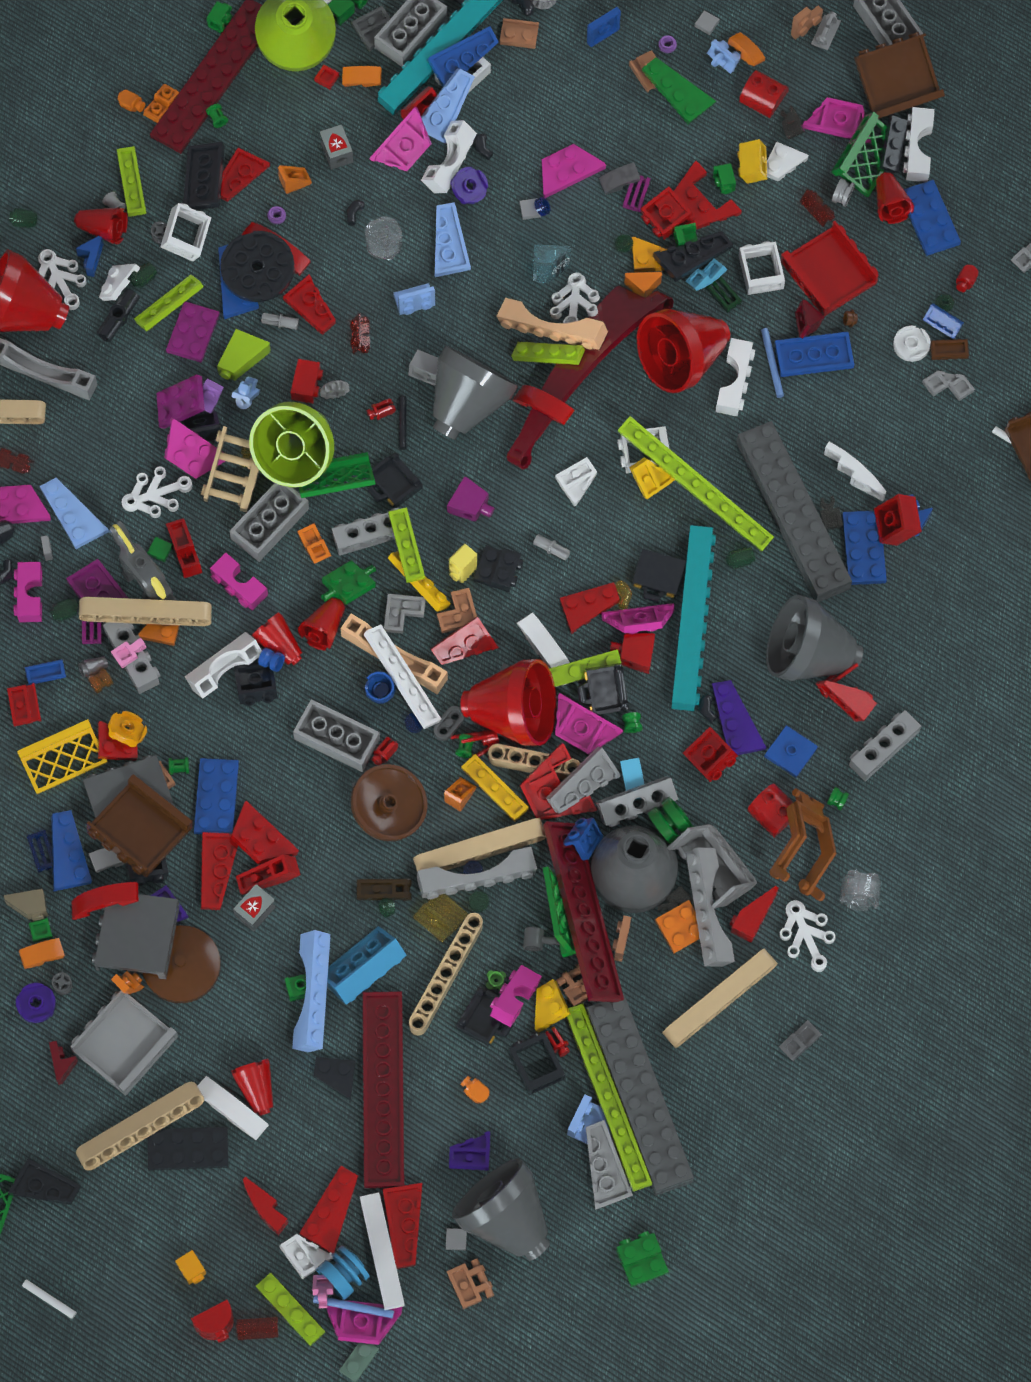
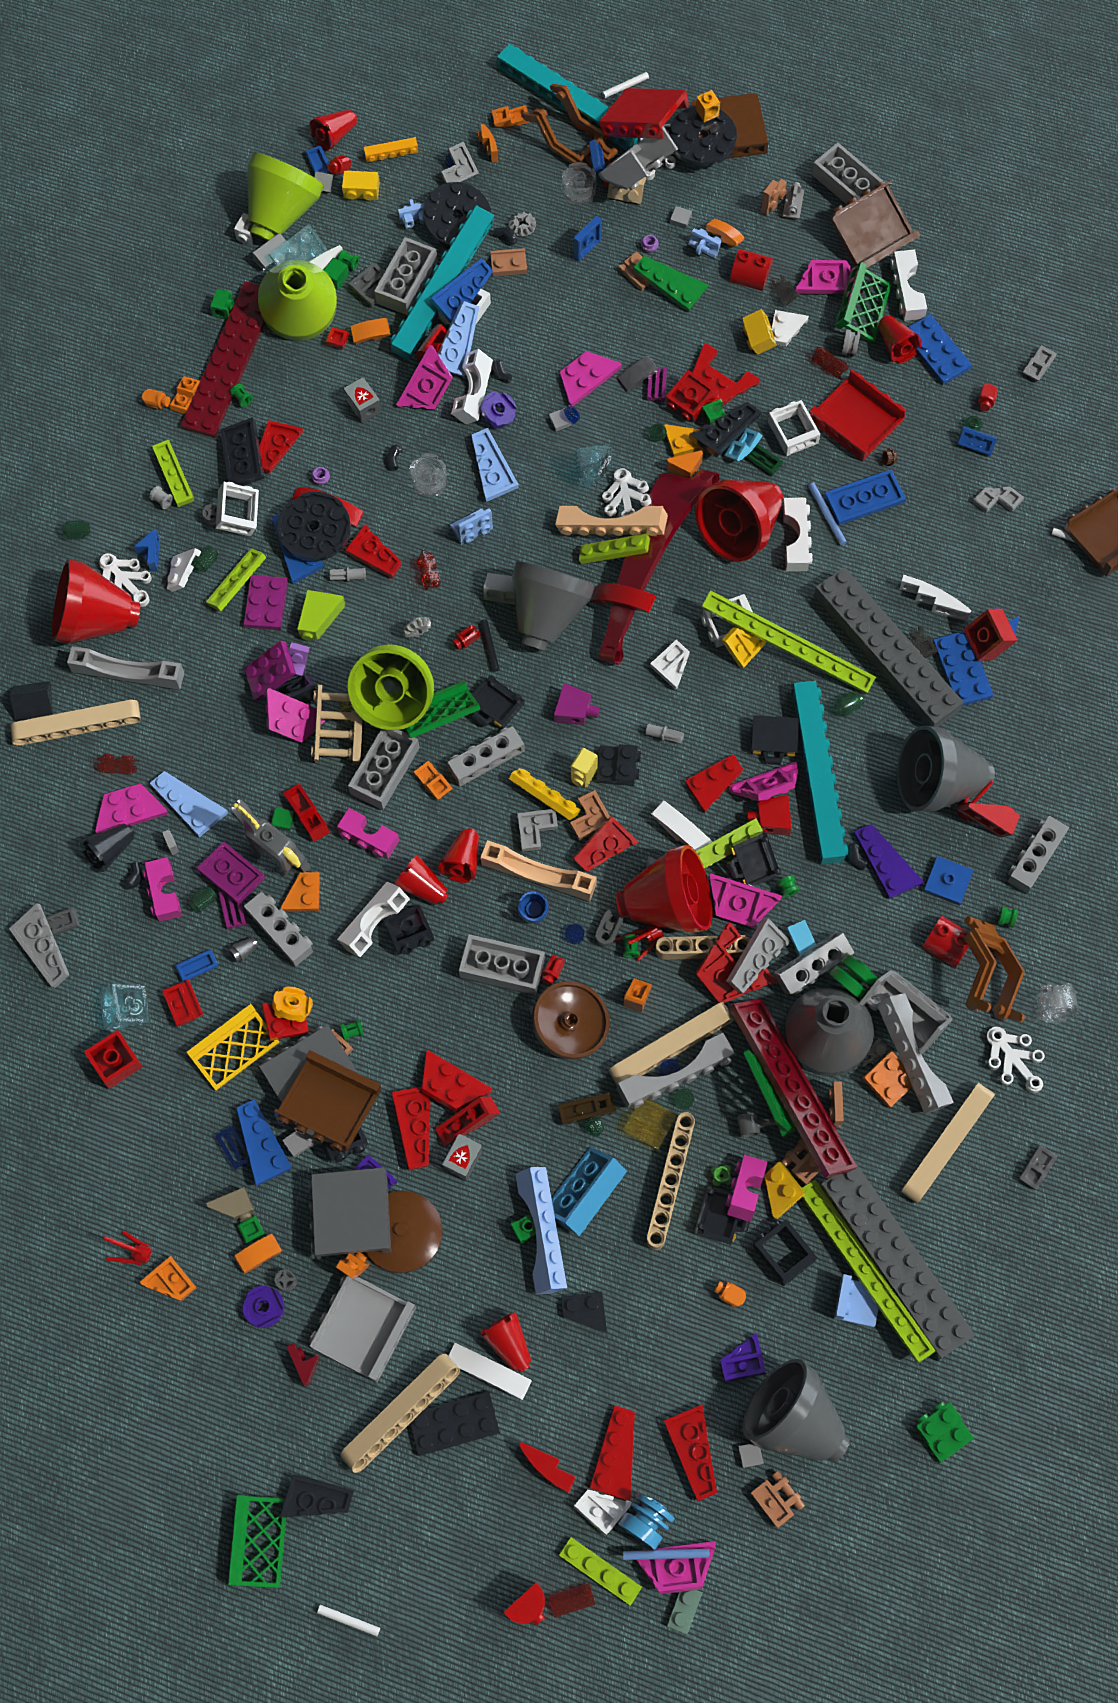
camera: 10 degrees left, 0 degrees up
(97, 684) = (249, 962): clear orange wheel -> none
(103, 897) = (308, 1183): red slope -> none
(104, 222) = (155, 516): red cone -> none
(123, 306) = (192, 592): black piece -> none
(126, 653) = (274, 929): bright pink plate -> none
(145, 611) = (282, 883): tan beam -> none
(153, 494) = (264, 766): white plant -> none
(191, 1268) = (488, 1552): light orange brick -> none
(216, 796) = (396, 1052): blue plate -> none
(246, 393) = (331, 649): light blue hips -> none
(270, 659) = (419, 903): blue wheel -> none
(293, 178) = (328, 437): orange slope -> none
(306, 381) = (386, 625): red brick -> none
(322, 1288) = (630, 1543): bright pink plate -> none
(348, 582) = (476, 811): green plate -> none
(382, 1251) = (680, 1488): white tile -> none
(383, 1090) = (638, 1316): dark red plate -> none
(402, 676) = (553, 891): white plate -> none
(406, 545) = (525, 761): lime plate -> none
(494, 787) = (670, 981): yellow plate -> none
(561, 1048) = (805, 1229): red arm -> none
(584, 836) = (773, 1010): blue bracket -> none
(606, 1170) = (884, 1347): light grey wing -> none
(625, 594) = (747, 762): clear yellow arm -> none
(710, 754) = (873, 901): red plate -> none
(724, 178) = (736, 353): green brick -> none
(751, 917) = (956, 1056): red slope -> none
(807, 318) = (849, 465): dark red slope -> none
(893, 144) = (885, 289): black plate -> none
(911, 343) = (952, 468): white tile -> none
(949, 349) = (989, 466): reddish brown tile -> none

